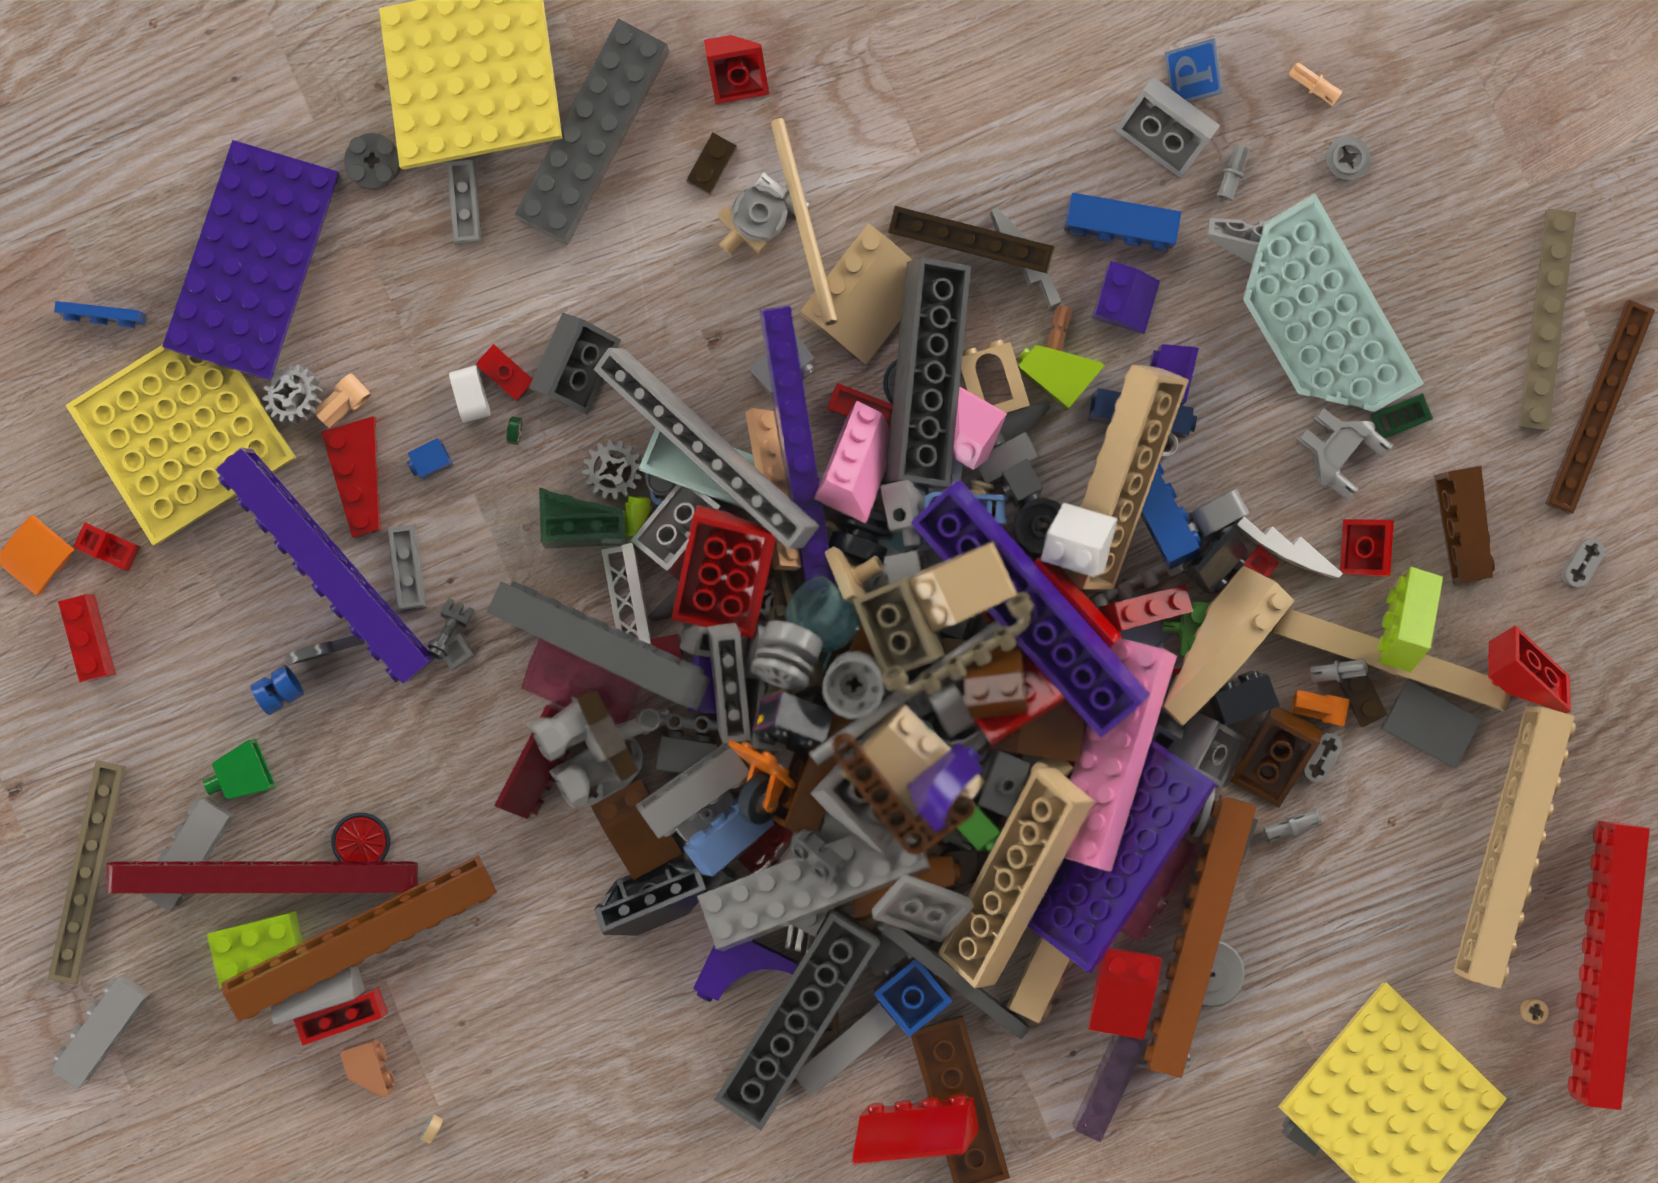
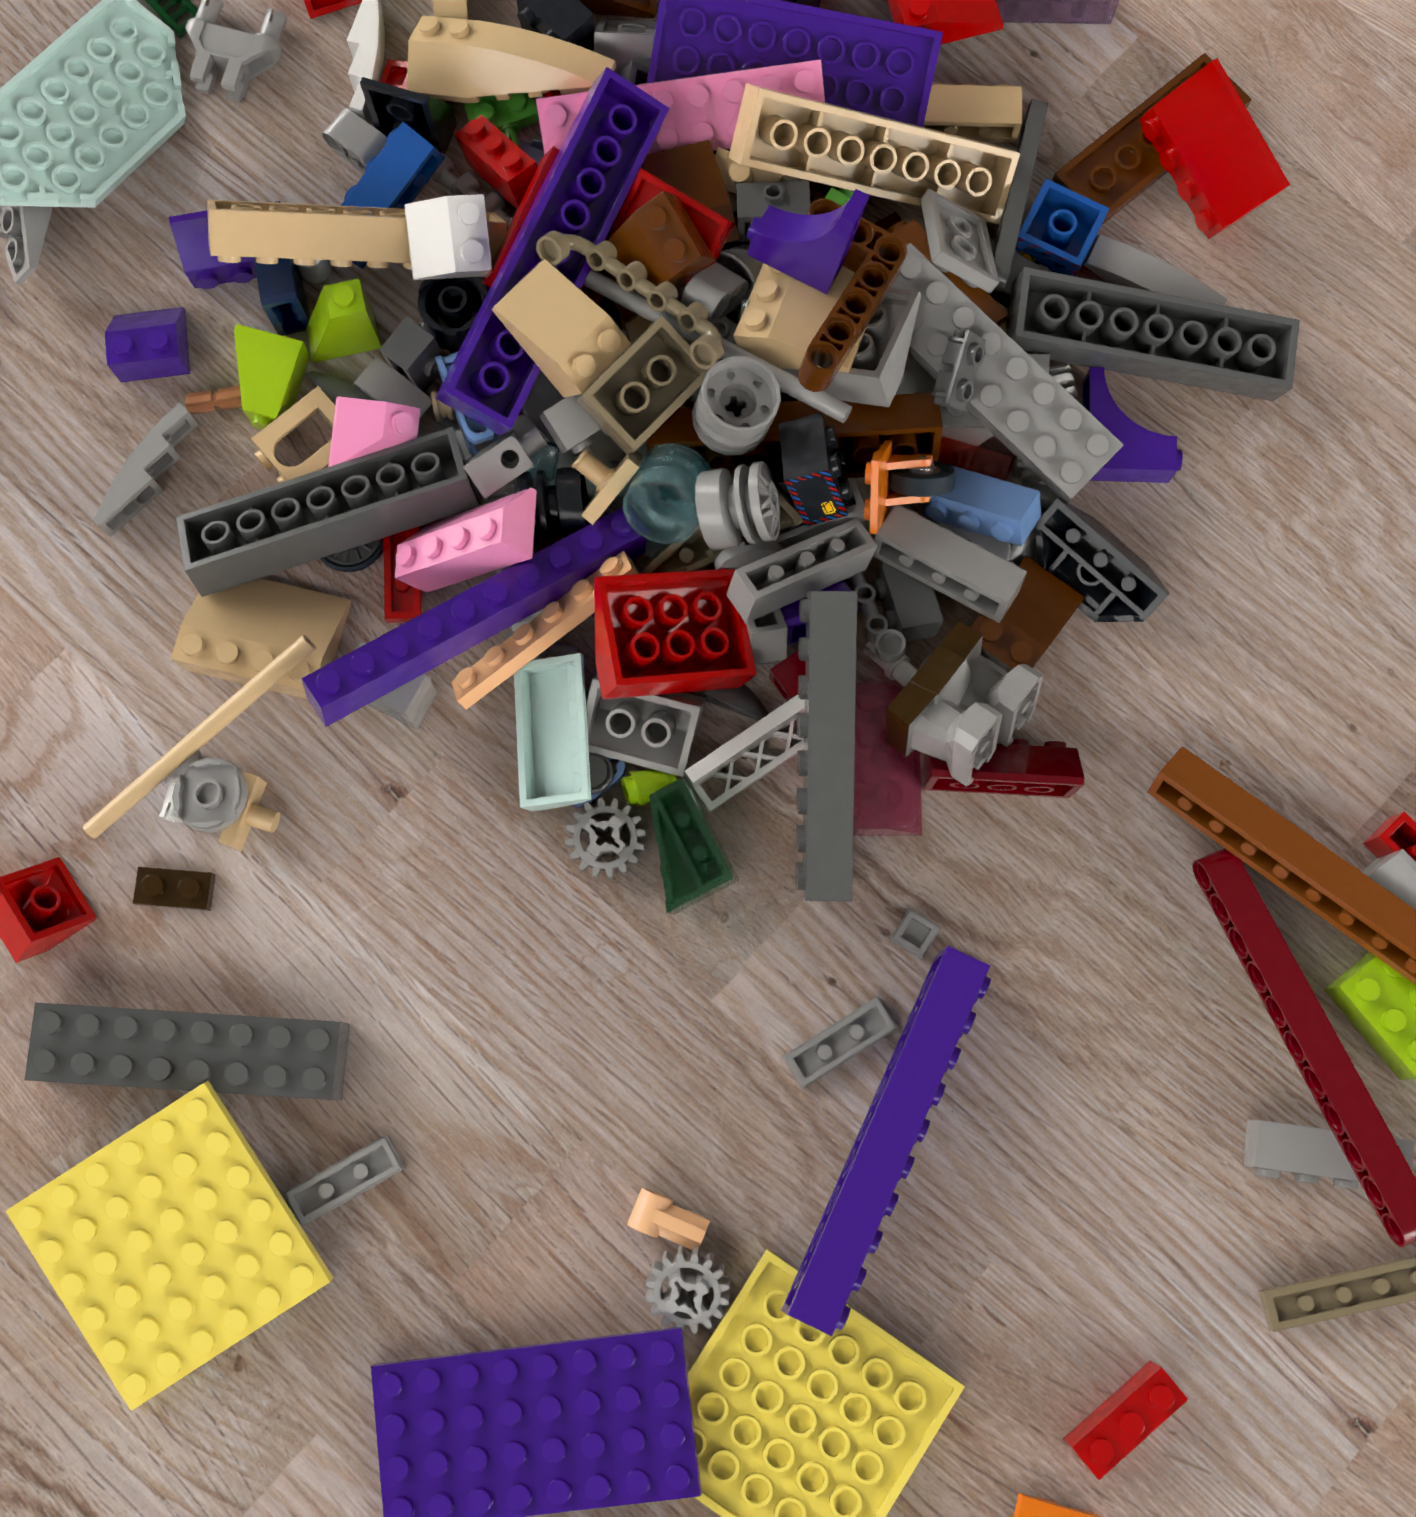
camera: 110 degrees left, 10 degrees down
(106, 546) = (994, 1451): red slope -> none
(240, 772) = (1195, 1133): green torso -> none
(285, 684) = (1060, 1124): blue wheel -> none
(321, 649) = (995, 1101): dark grey piece -> none
(355, 470) = (746, 1165): red wing -> none
(360, 172) = (317, 1317): dark grey plate -> none
(360, 838) = (1198, 946): red wheel -> none
(429, 459) = (693, 1072): blue brick -> none
(438, 648) = (923, 951): dark grey hinge -> none
(469, 394) = (587, 1059): white beam -> none
(504, 372) = (542, 1028): red plate -> none
(514, 430) = (610, 981): dark green tile -> none
(569, 363) = (492, 944): dark grey slope -> none
(706, 448) = (526, 723): light grey brick -> none
(971, 239) = (144, 535): dark brown tile -> none
(1070, 441) = (342, 322): none -> lime slope
(1122, 221) = (58, 381): blue brick -> none

